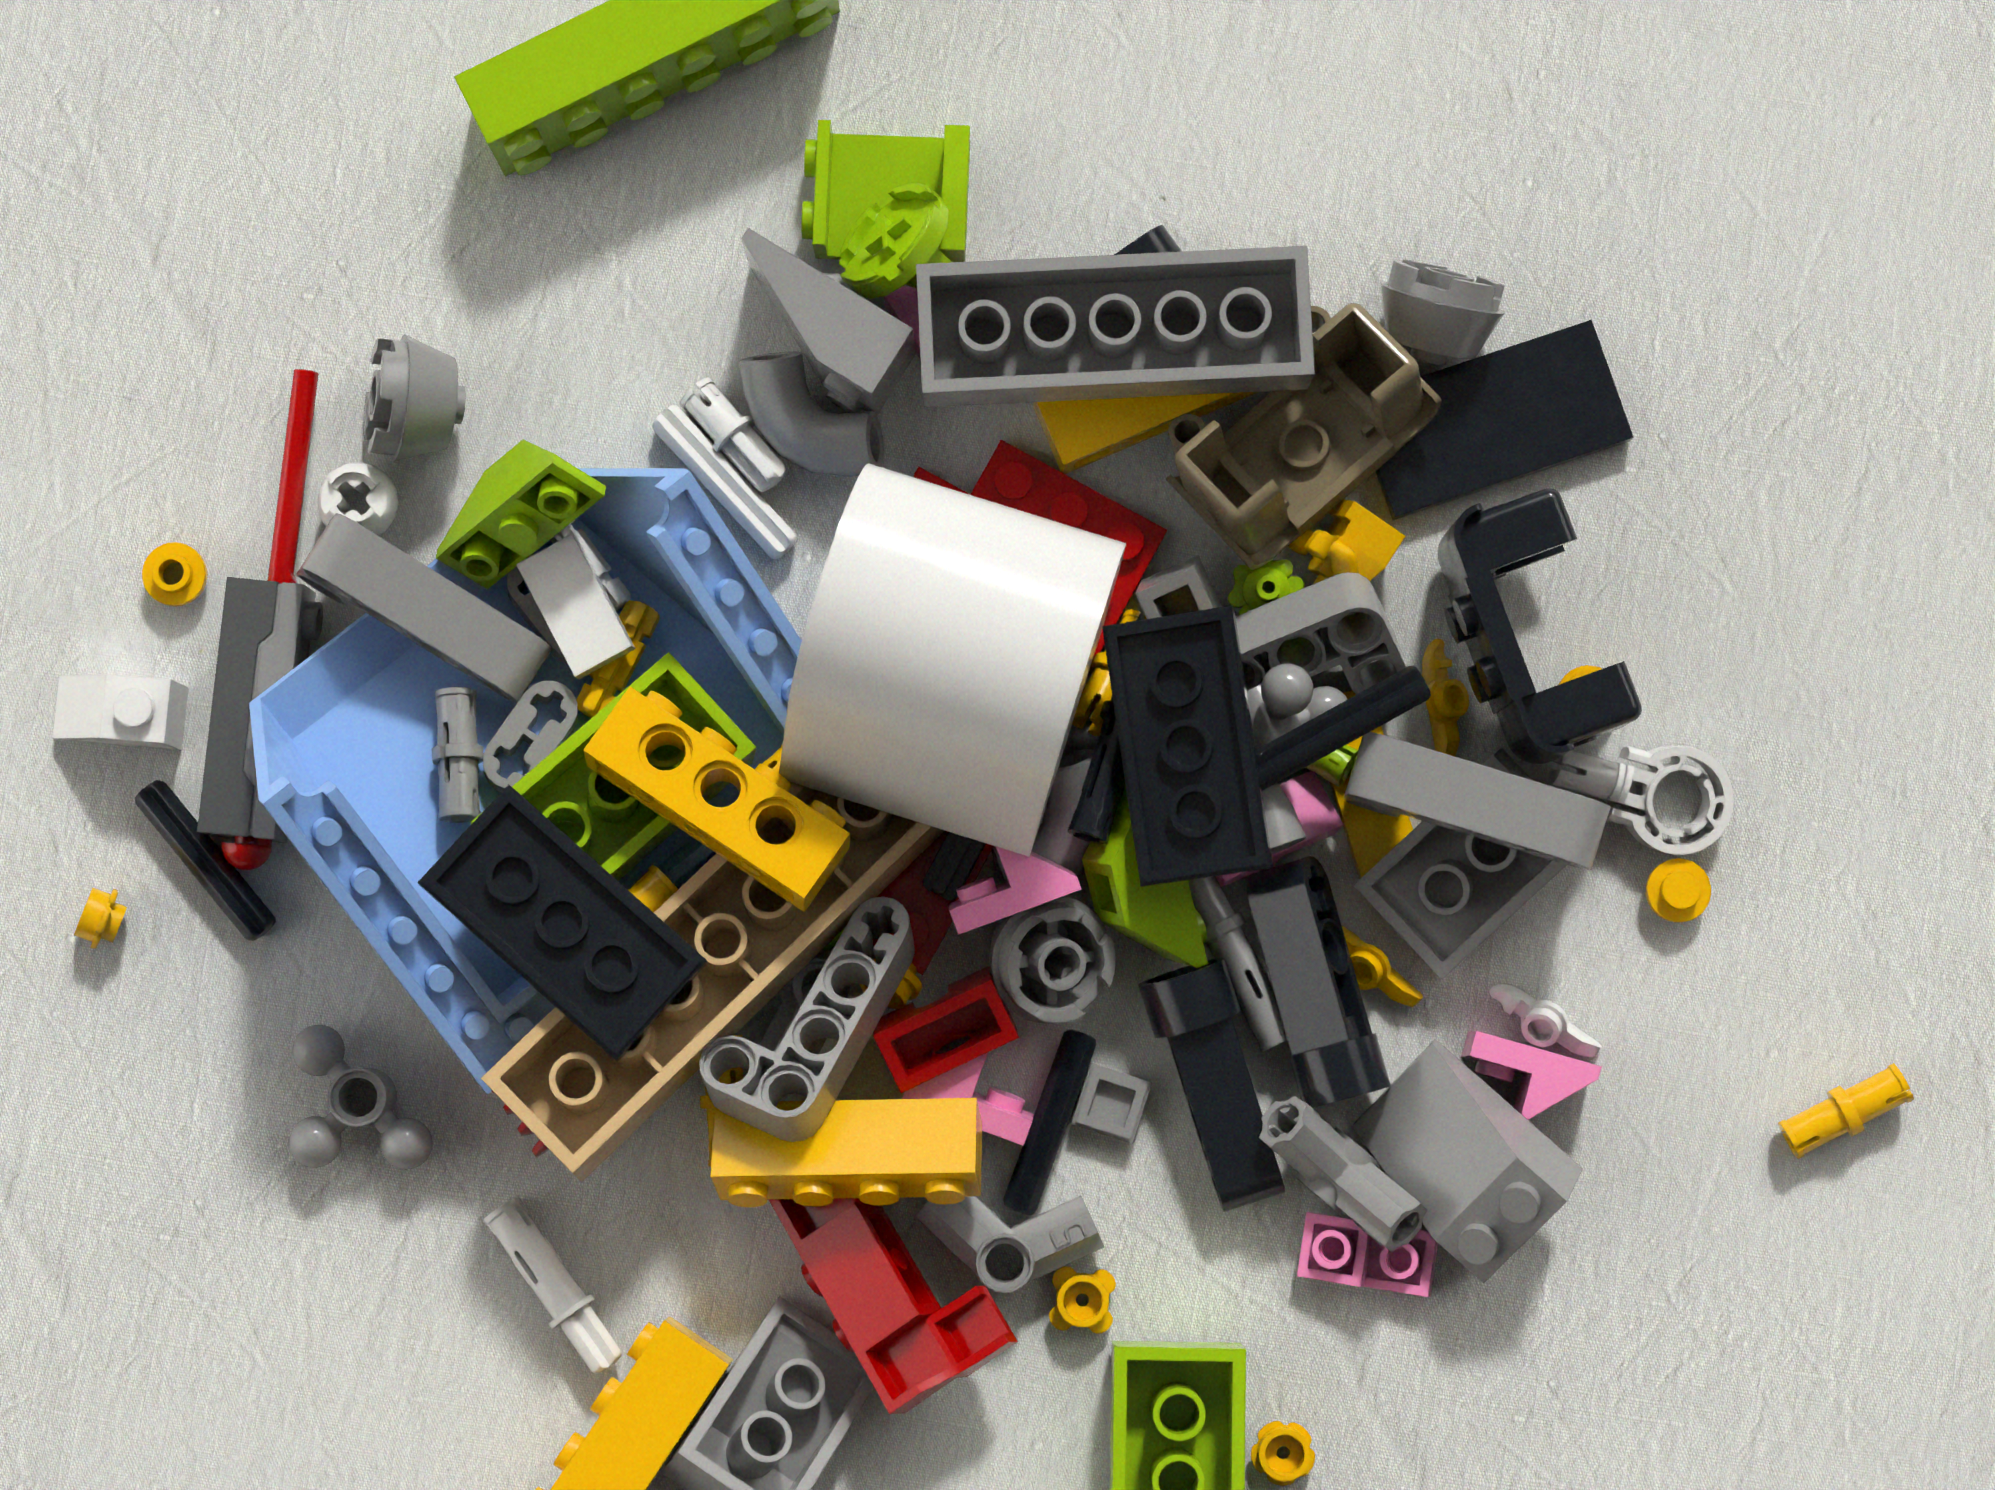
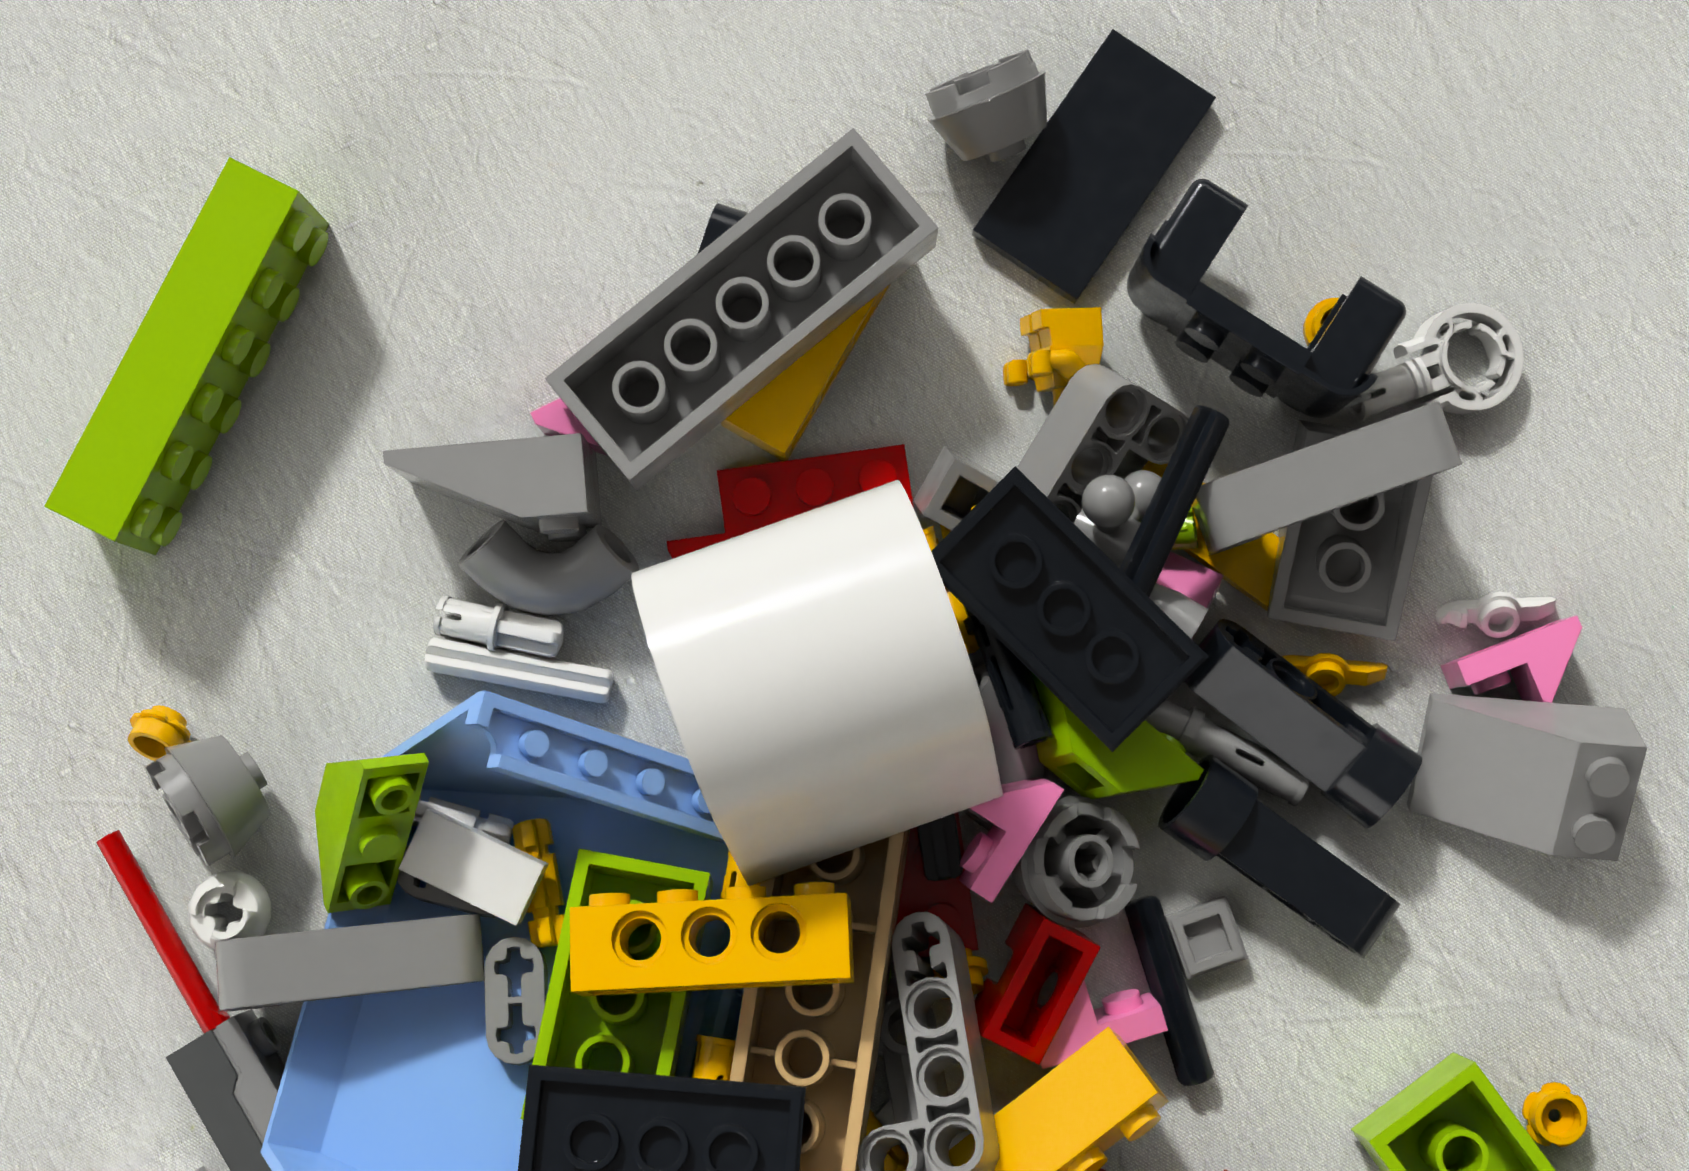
camera: 35 degrees left, 0 degrees up
(193, 578) = (141, 1079): yellow plate -> none
(406, 316) = (156, 730): none -> yellow plate
(457, 754) = (467, 1062): light grey pin -> none
(863, 169) = (478, 342): lime panel -> none
(891, 240) = (510, 375): lime tile -> none
(1044, 1240) = (1237, 1092): light grey piece -> none
(1069, 1286) = (1321, 1118): yellow plate -> none
(1263, 584) = (1013, 430): lime plant -> none
(1304, 446) = (968, 296): dark tan container -> none
(1341, 1173) = (1438, 857): light grey piece -> none
(1344, 1254) = (1499, 904): bright pink slope -> none
(1447, 700) = (1238, 434): yellow piece -> none
(1678, 890) = (1521, 429): yellow plate -> none

